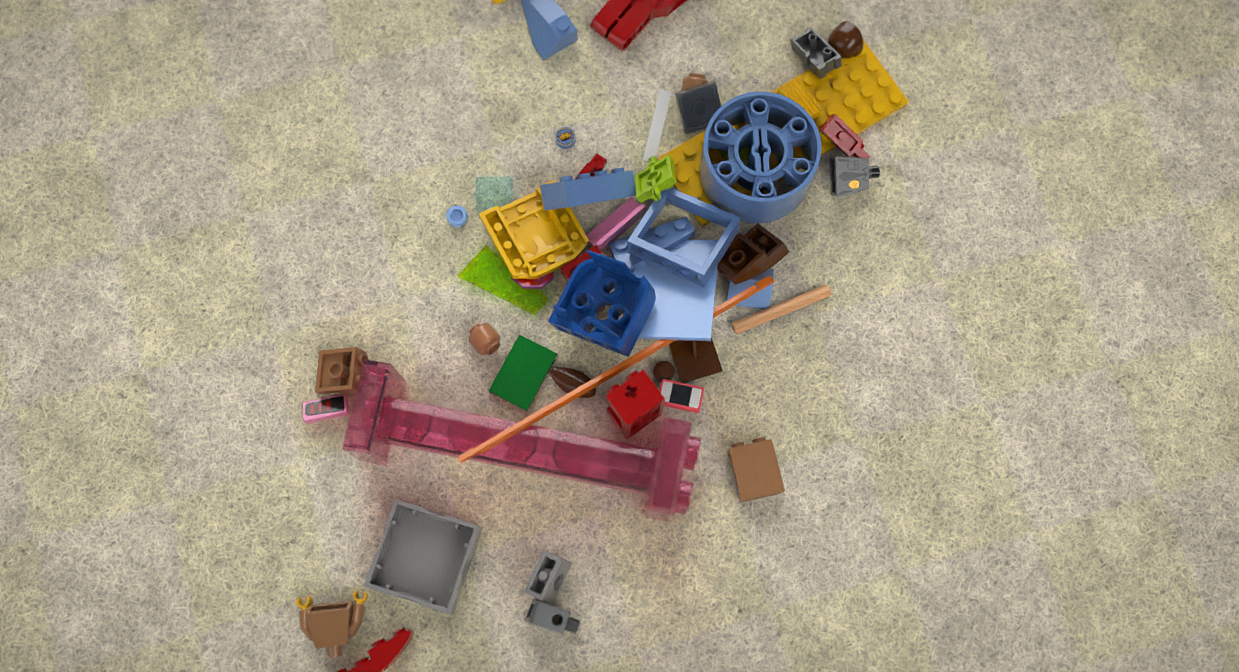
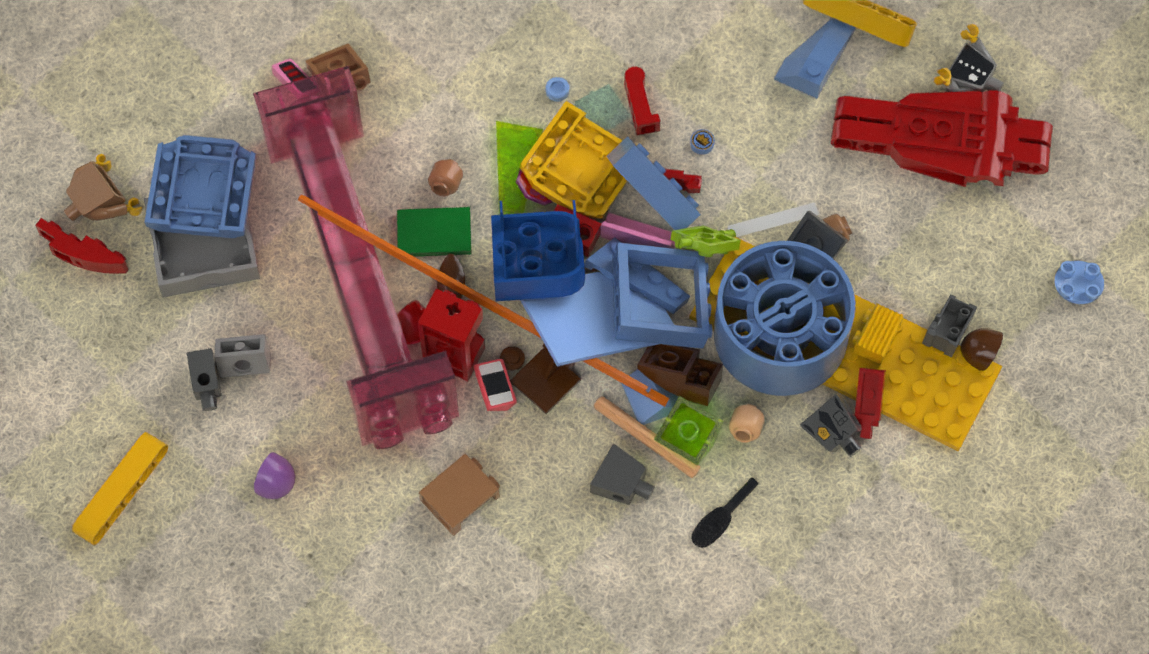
camera: 60 degrees right, 10 degrees down
(385, 534) = (201, 187): none -> medium blue wedge
(506, 163) = (638, 102): none -> red leg
(594, 425) = (408, 320): none -> red helmet
(664, 602) = (274, 477): none -> medium lavender helmet
(799, 276) = (689, 431): none -> clear neon green slope
(806, 345) = (621, 478): none -> dark grey torso
(812, 233) = (746, 423): none -> light nougat head
(872, 296) = (718, 520): none -> black piece

